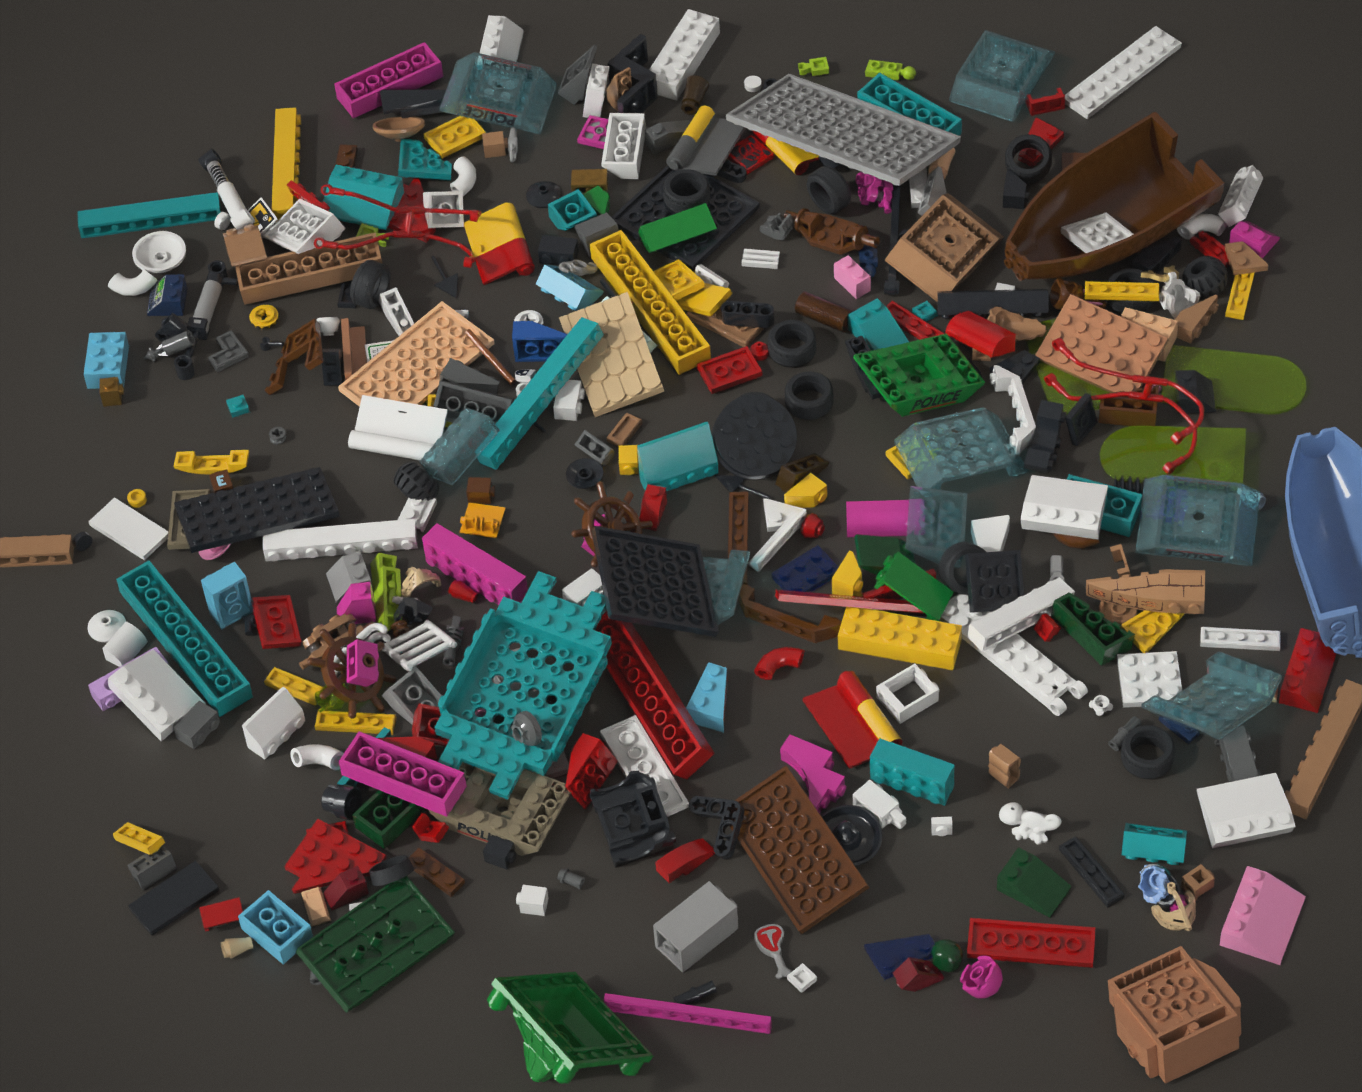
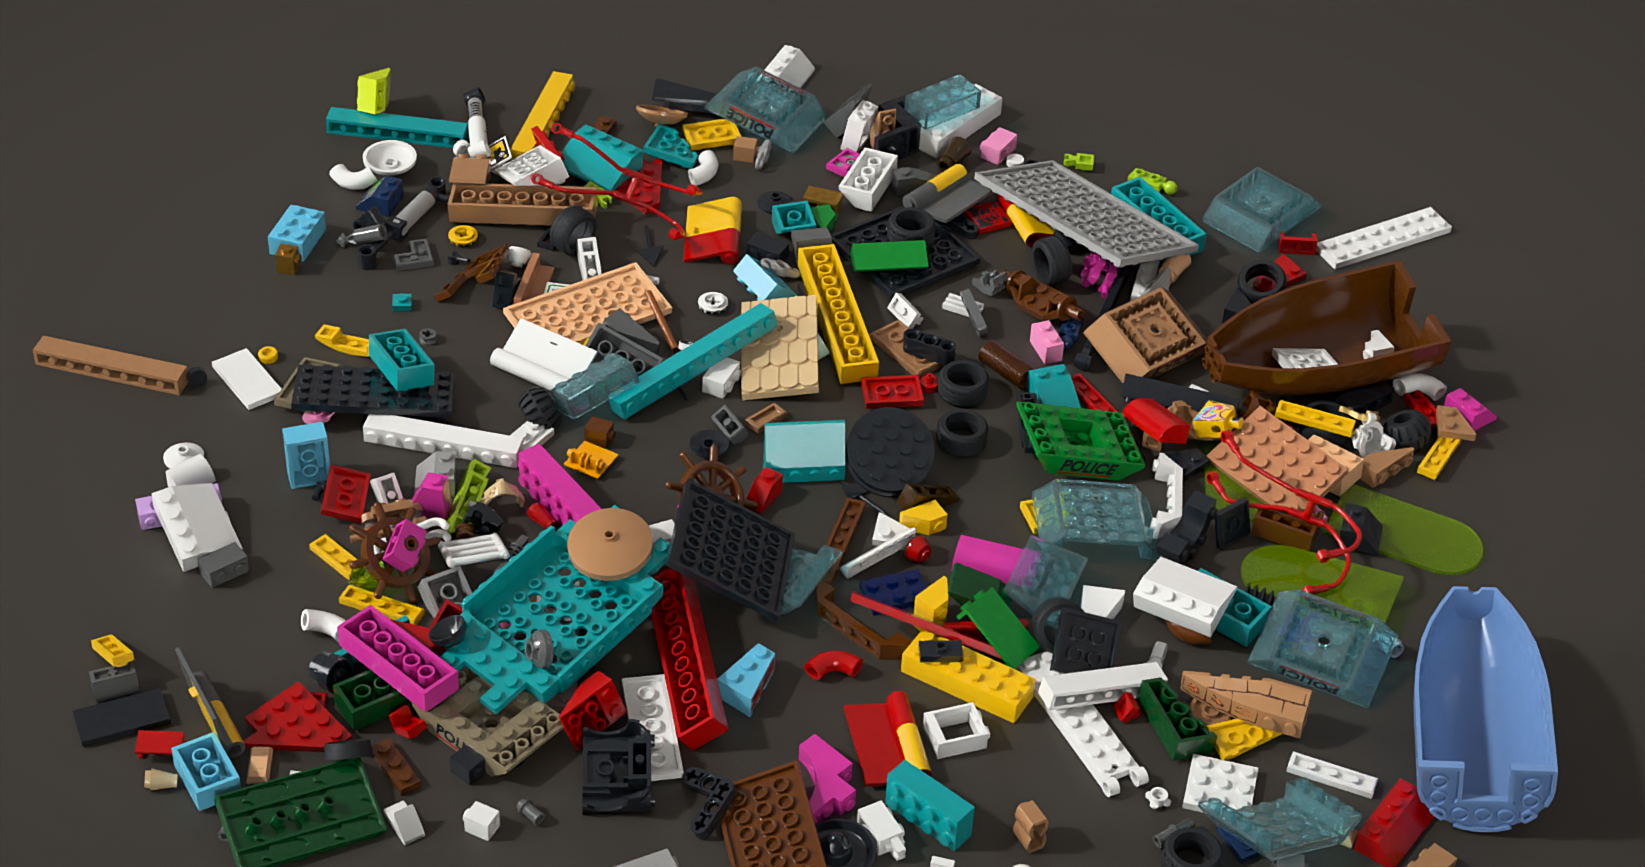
camera: 10 degrees right, 10 degrees down
(115, 185) = (374, 91): none -> neon yellow slope
(184, 638) = (250, 485): teal brick -> none
(220, 481) = (353, 358): reddish brown brick -> none
(252, 866) = (212, 709): none -> dark grey door
(271, 471) = (401, 359): none -> teal brick
(273, 723) = (296, 581): white slope -> none
(313, 608) = (386, 489): none -> white slope
(346, 888) = (296, 755): dark red slope -> none
(401, 72) = (693, 70): dark pink brick -> none
(436, 733) = (448, 631): none -> black piece
(444, 200) = (672, 197): white slope -> none
(466, 920) = (404, 822): none -> white slope
(534, 341) = (706, 314): blue slope -> none
(550, 611) = (610, 544): none -> medium nougat dish
(628, 460) = (755, 444): yellow brick -> none
(667, 42) = (943, 101): none -> clear light blue brick
(679, 279) = (873, 301): yellow plate -> none
(684, 859) = (655, 825): red slope -> none
(705, 300) = (889, 322): yellow tile -> none
(732, 71) = (998, 145): none -> bright pink brick
(775, 265) = (973, 312): none -> dark grey beam
(871, 624) = (940, 651): none -> black plate
(925, 311) = (1109, 391): teal tile -> none
(1035, 318) = (1216, 418): none -> yellow torso
(1118, 555) = (1228, 660): medium nougat piece -> none
(1156, 201) = (1377, 346): none -> white arch
(1240, 195) = (1467, 366): white brick -> none

